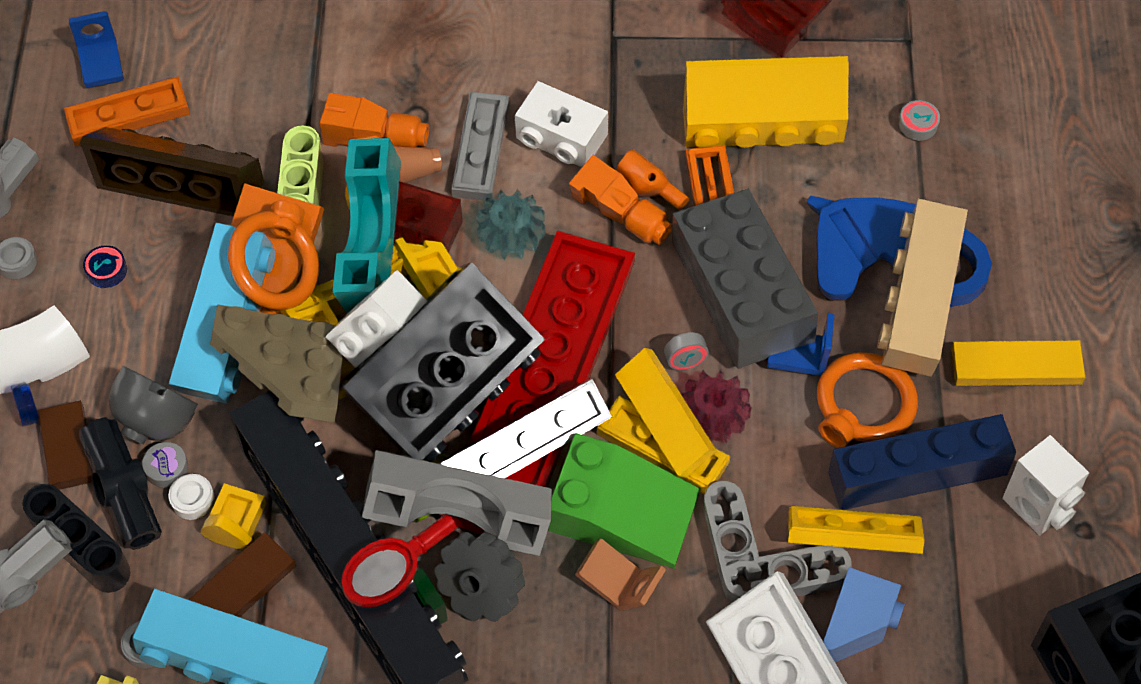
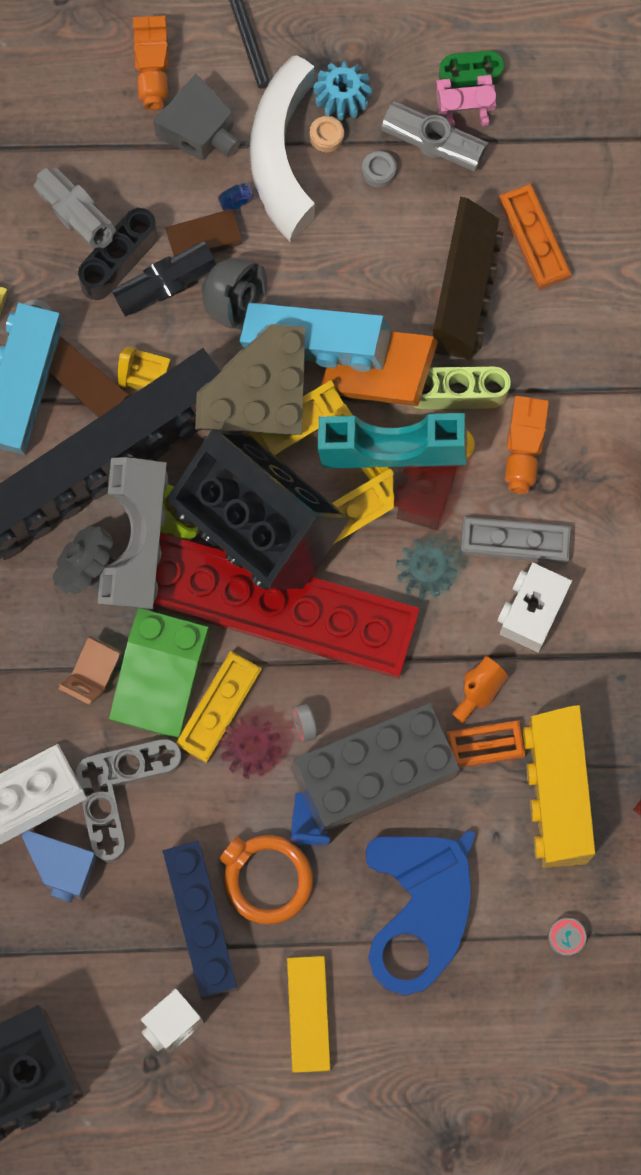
camera: 85 degrees right, 15 degrees up
(97, 51) = (588, 203): blue bracket -> none
(105, 266) = (373, 241): clear blue tile -> none
(164, 464) = (188, 312): light grey tile -> none
(191, 496) = (161, 336): white tile -> none
(285, 222) = (391, 370): orange piece -> none
(376, 318) = (289, 452): white brick -> none
(389, 565) = (64, 479): red piece -> none
(418, 162) = (487, 478): nougat cone -> none
(428, 595) = (71, 523): dark green tile -> none
(534, 433) = (206, 590): tile -> none
(619, 201) = (457, 657): orange piece -> none
(665, 413) = (236, 702): yellow tile -> none
(855, 529) = (139, 864): yellow tile -> none
(923, 288) = (363, 923): tan brick -> none

